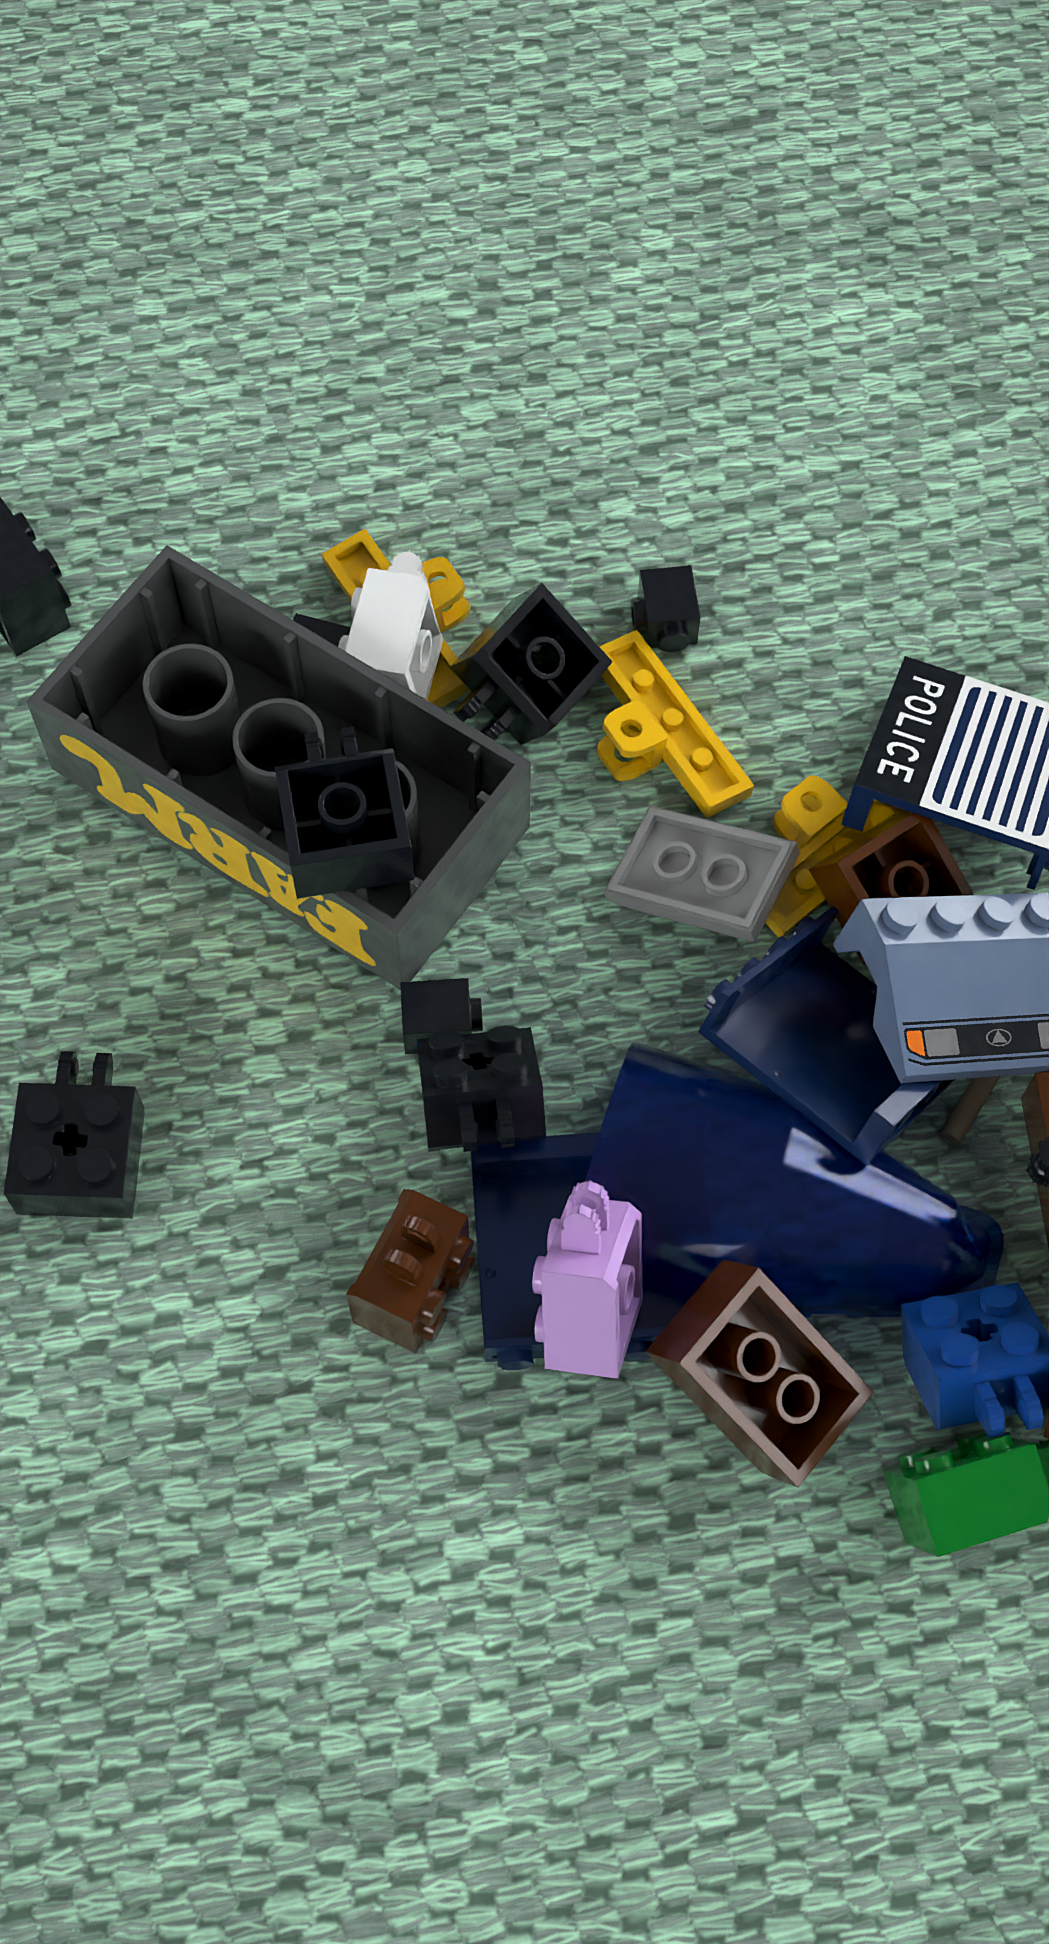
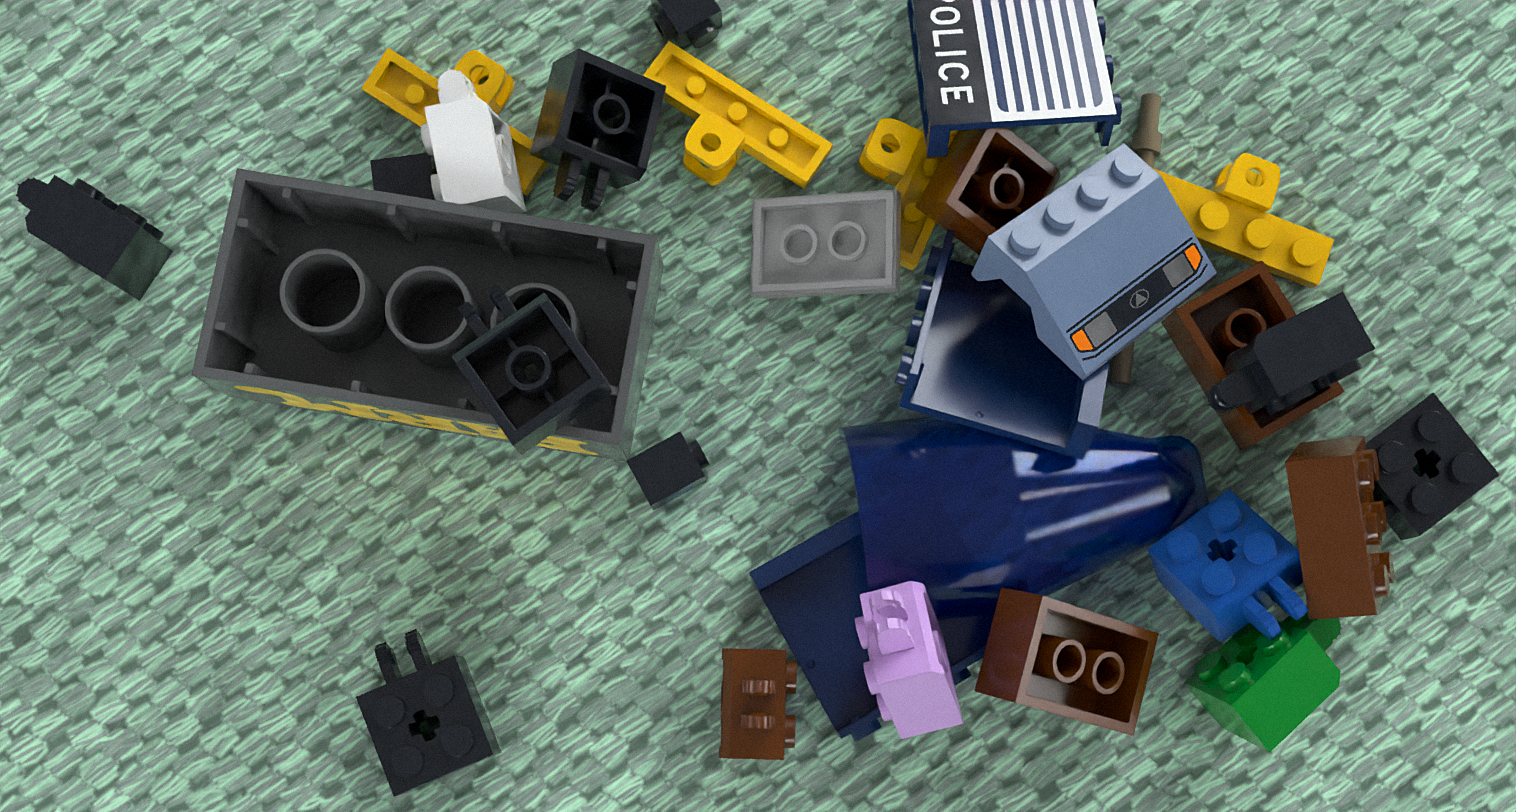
camera: 25 degrees left, 15 degrees up
(481, 1088) = (739, 526): black hinge -> none

